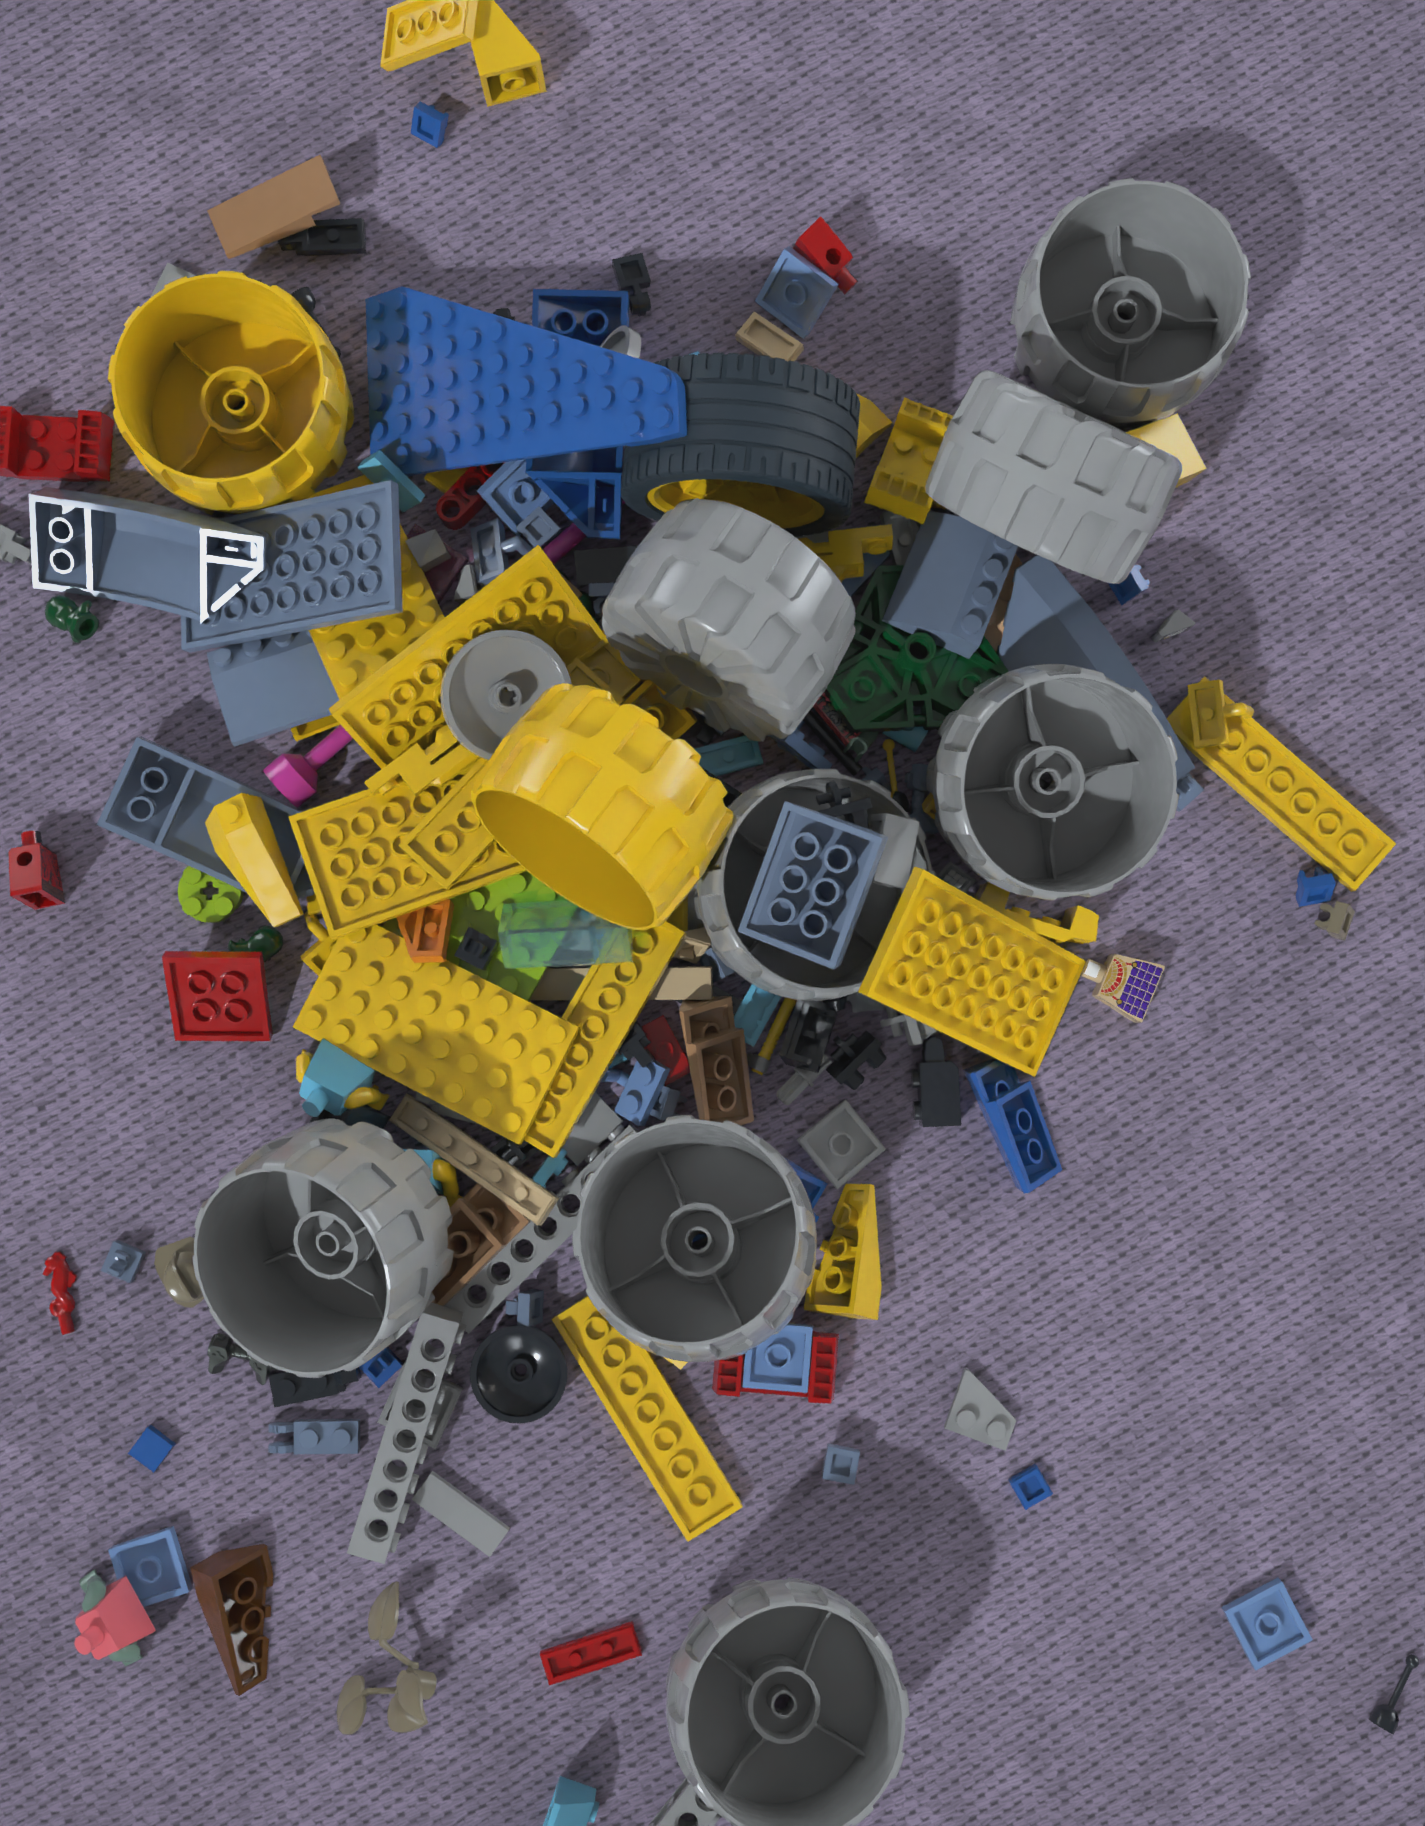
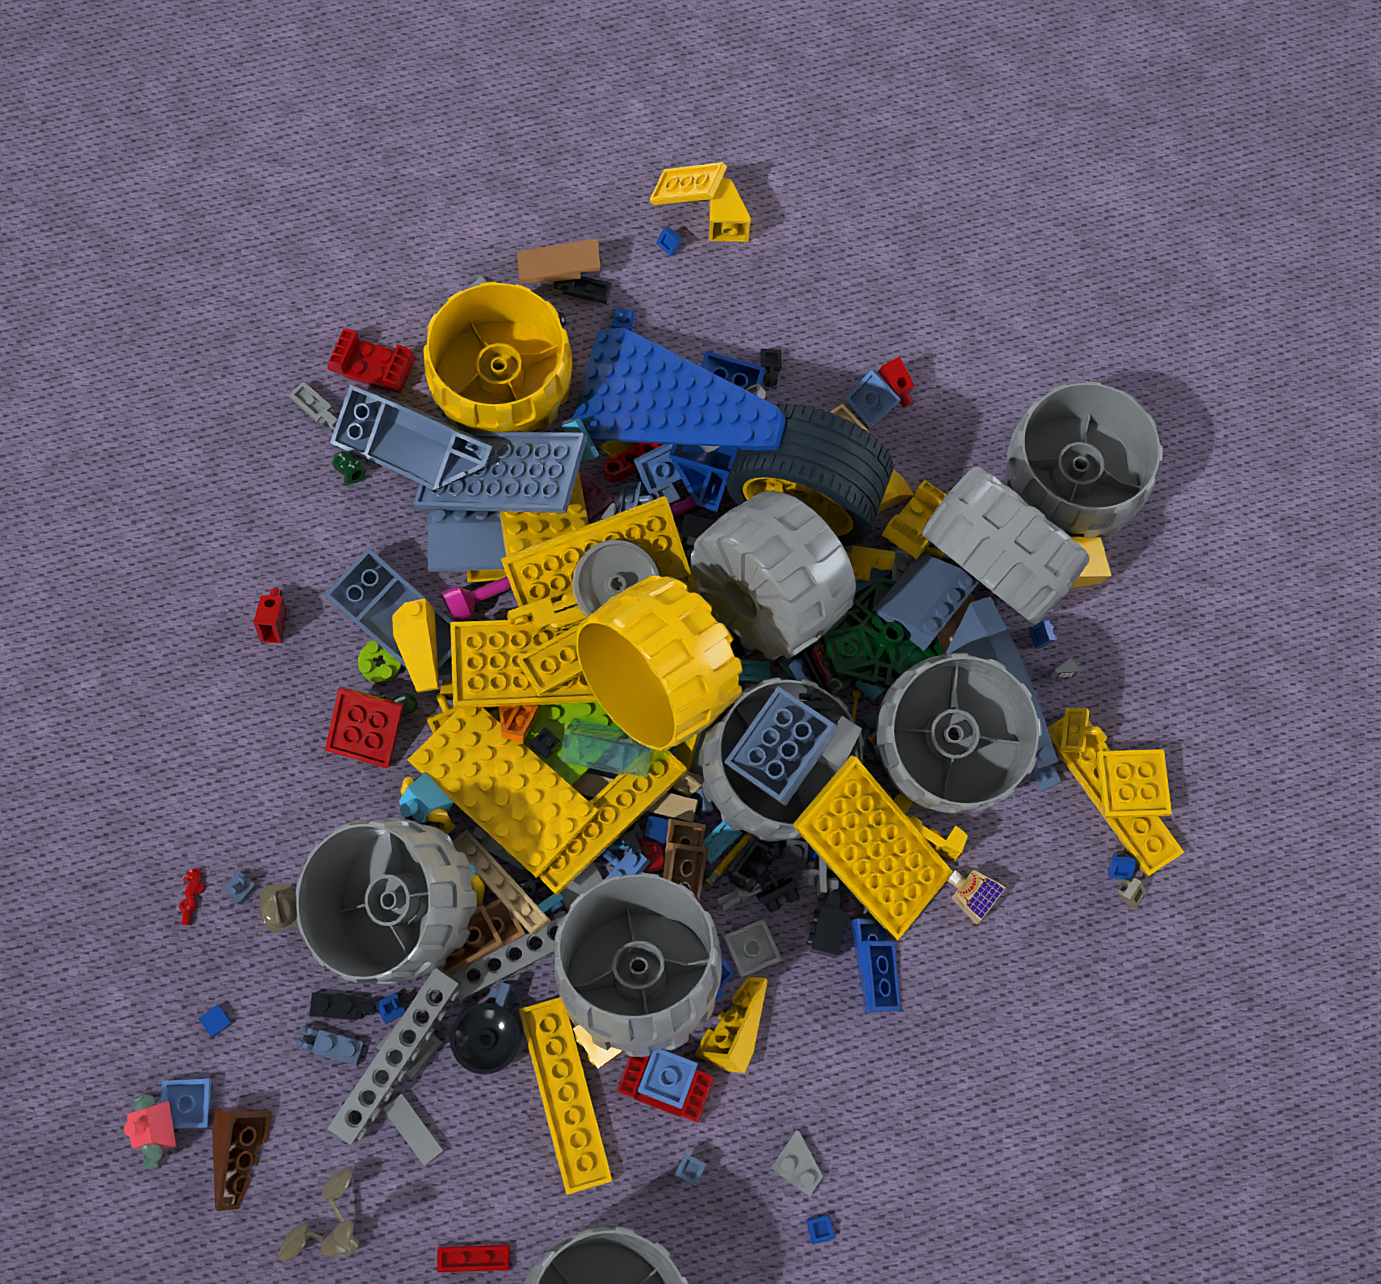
camera: 10 degrees right, 15 degrees down
(220, 1350) = (311, 980): pearl dark grey piece -> none
(398, 271) = (623, 318): none -> blue tile
(428, 550) = (591, 488): light grey slope -> none
(665, 1020) = (656, 829): none -> blue tile
(1307, 767) = (1133, 783): none -> yellow plate

